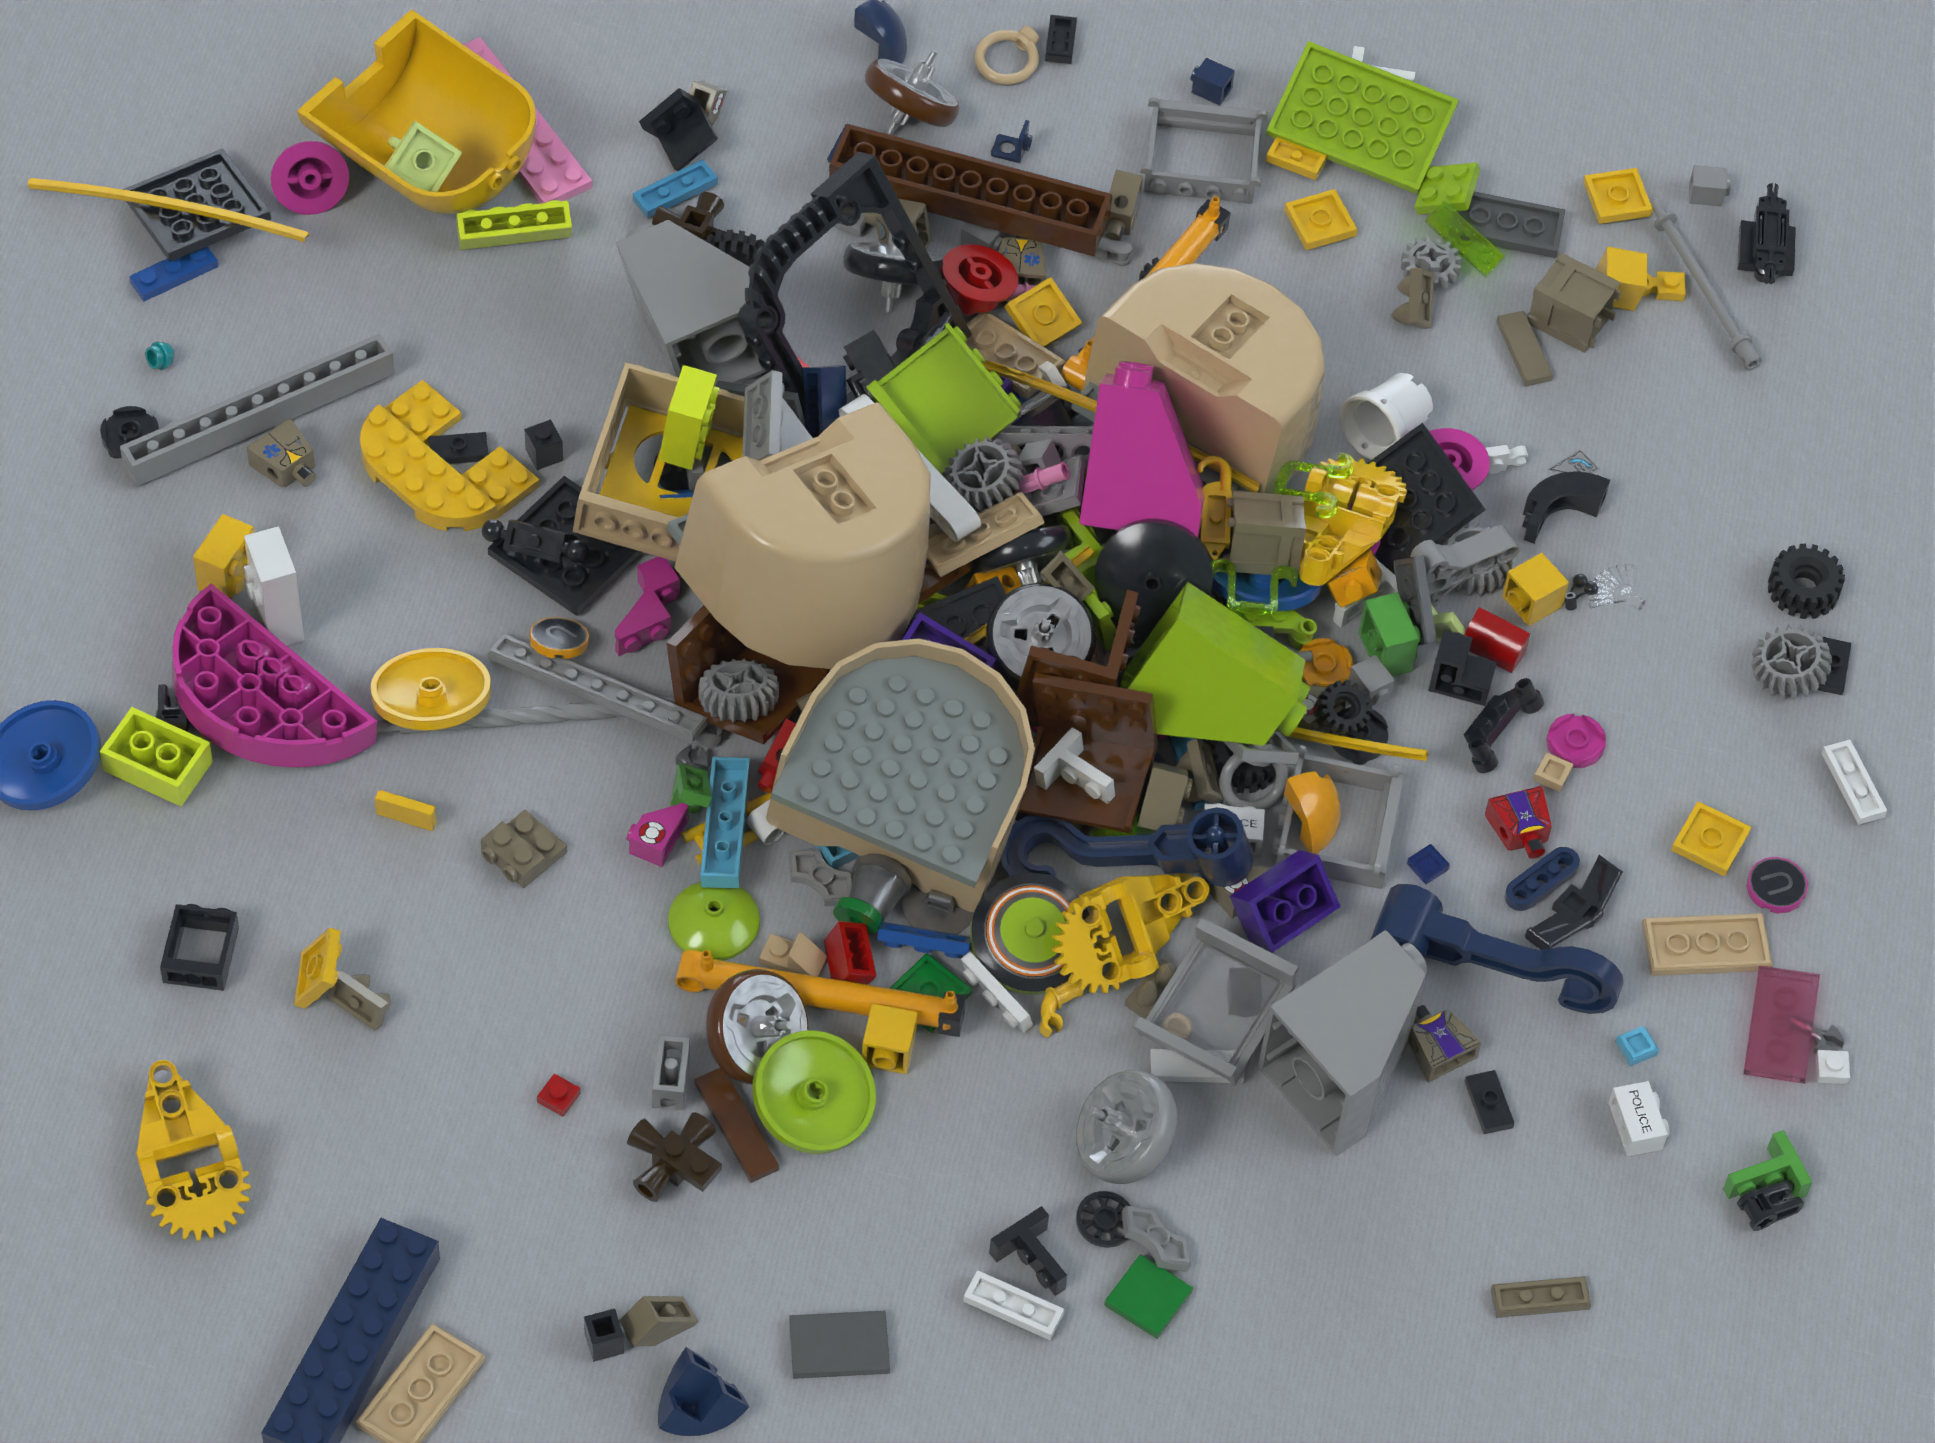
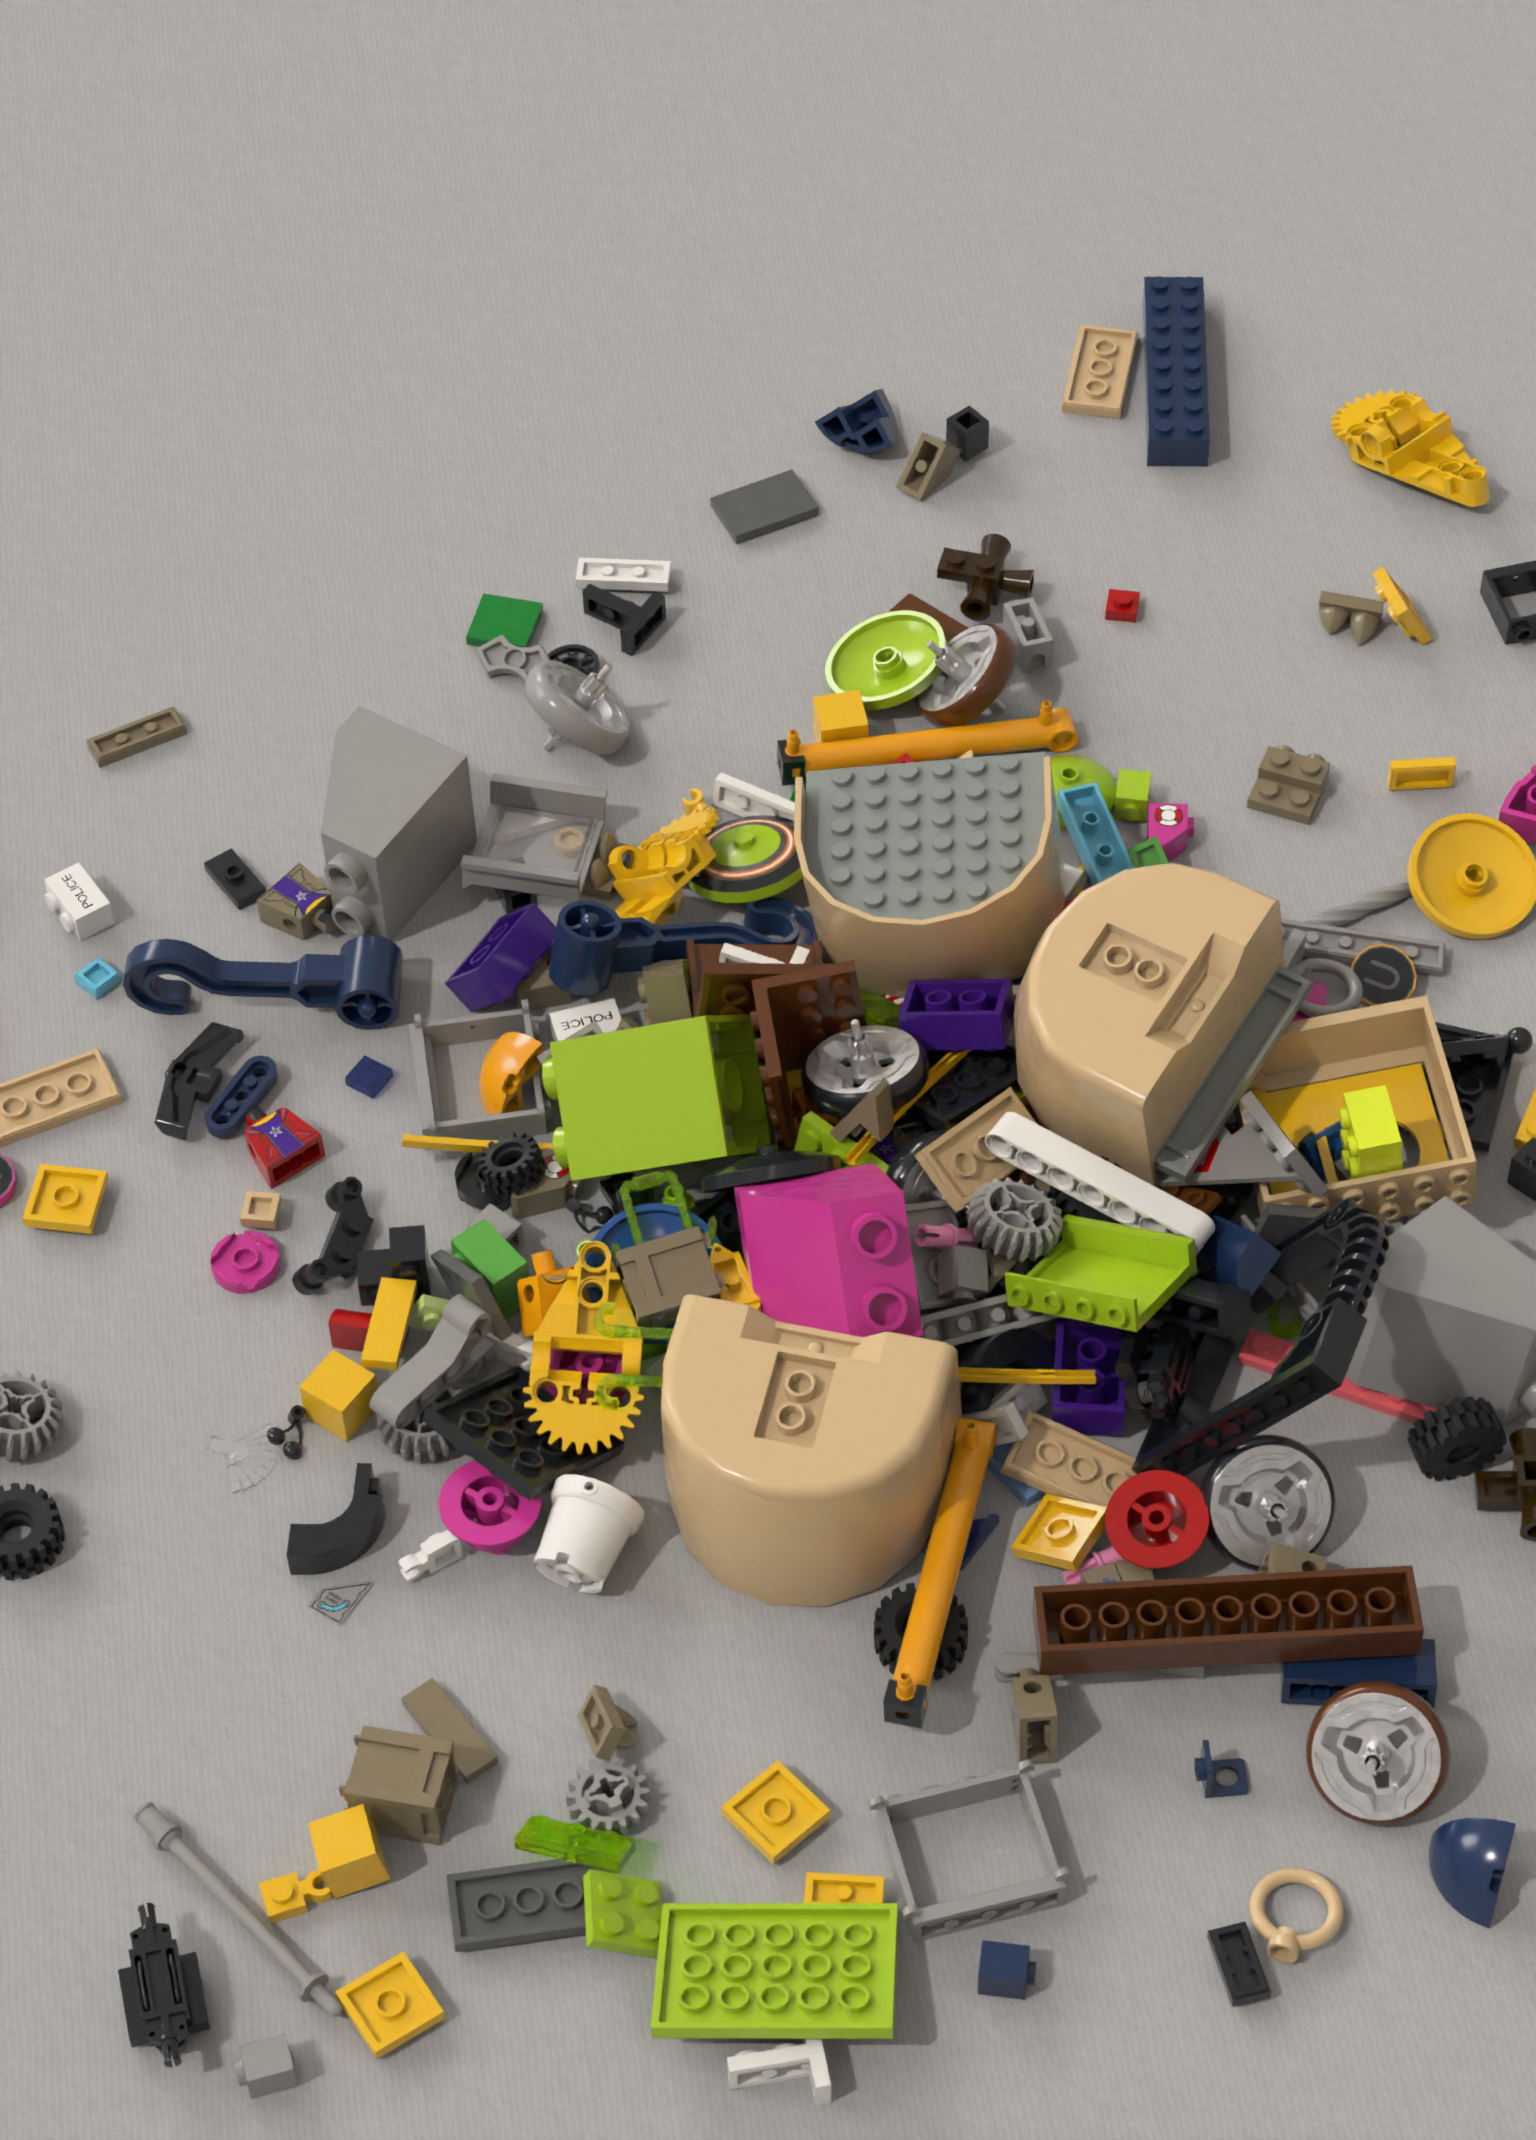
camera: 165 degrees right, 5 degrees down
(640, 649) = (1293, 962): none -> light grey tile
(665, 881) = (1132, 795): none -> lime brick
(1329, 663) = (555, 1235): light orange tile -> none
(1486, 607) = (389, 1323): none -> yellow tile

